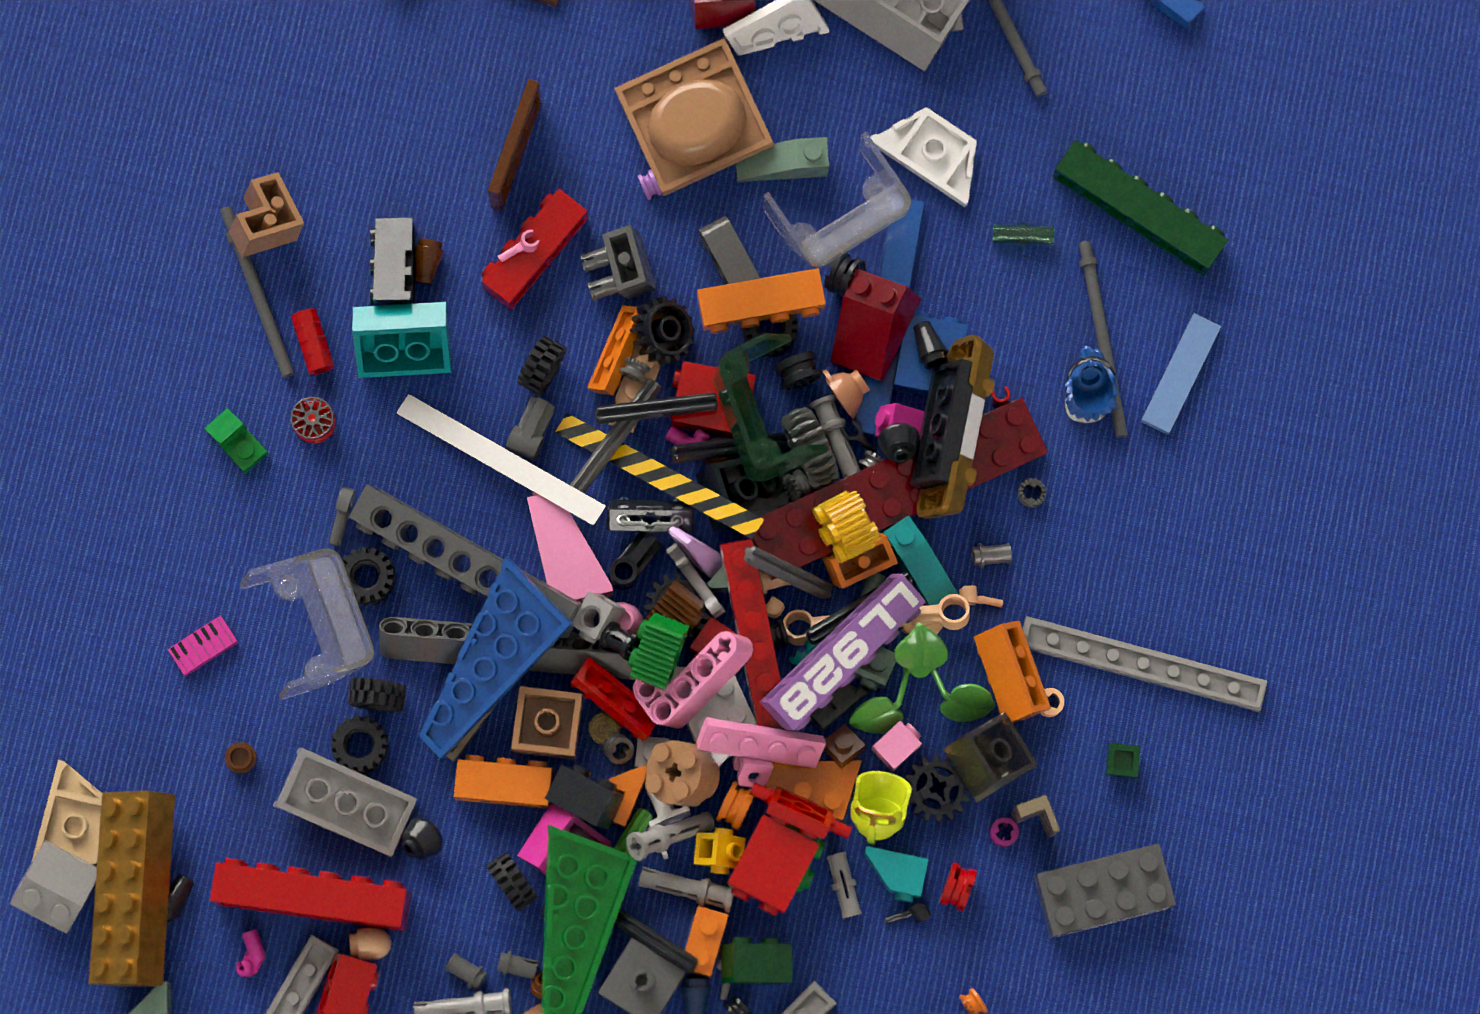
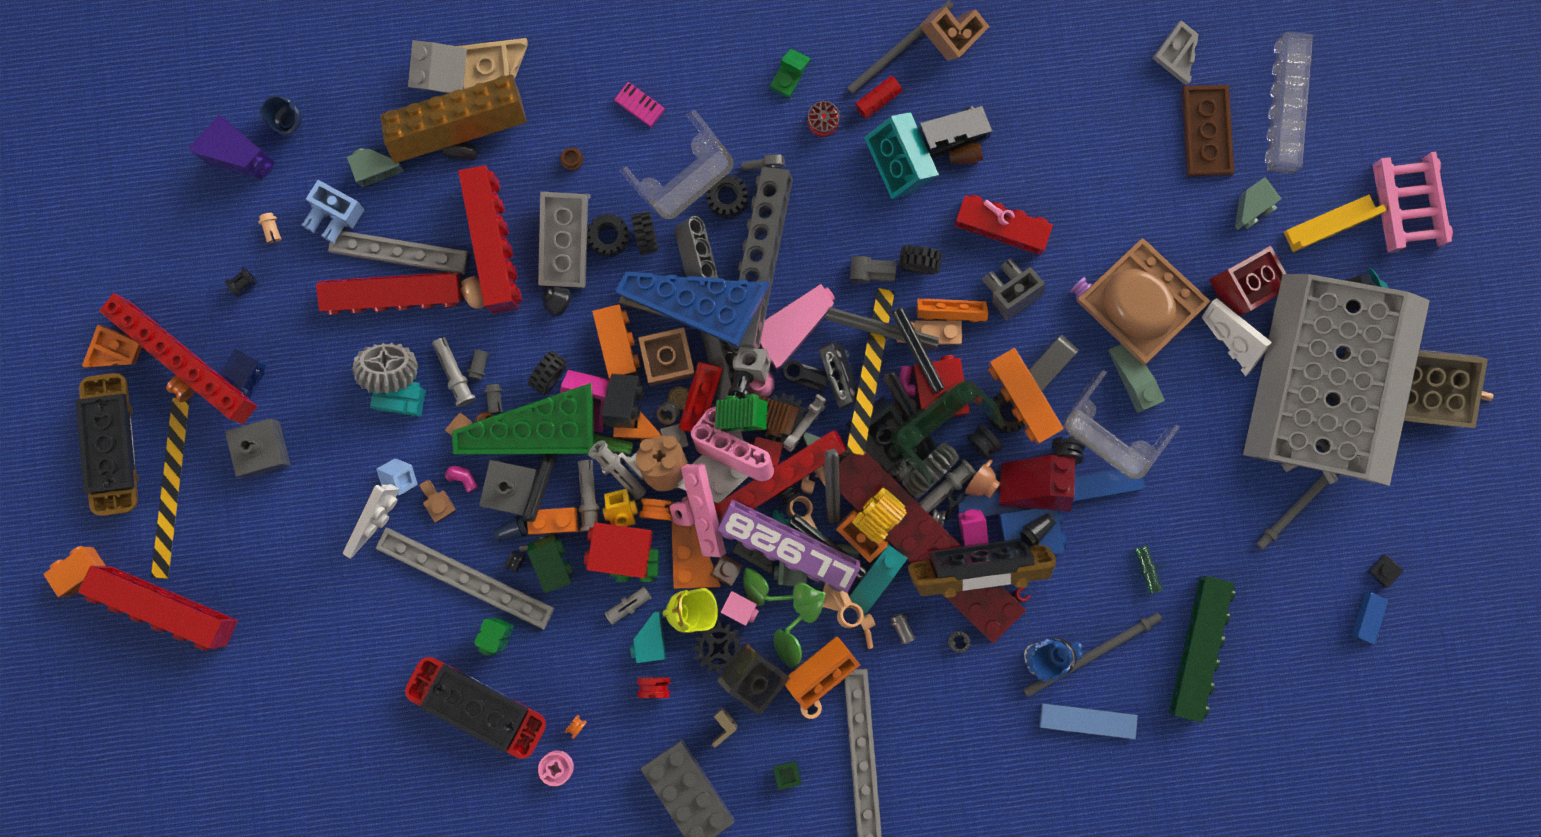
camera: 75 degrees right, 5 degrees up
(254, 956) = (438, 218): dark pink arm -> none
(501, 459) = (842, 257): white sticker -> none
(515, 145) = (1073, 182): reddish brown tile -> none
(634, 370) = (940, 326): dark grey bush -> none
(663, 330) = (971, 326): black gear -> none
(698, 553) = (827, 418): lavender slope -> none
(793, 809) = (663, 556): red plate -> none
(899, 441) = (957, 532): black cone -> none
(918, 912) = (628, 664): black hand -> none
(932, 151) = (1184, 482): white wing -> none
(995, 829) = (707, 714): magenta bush -> none

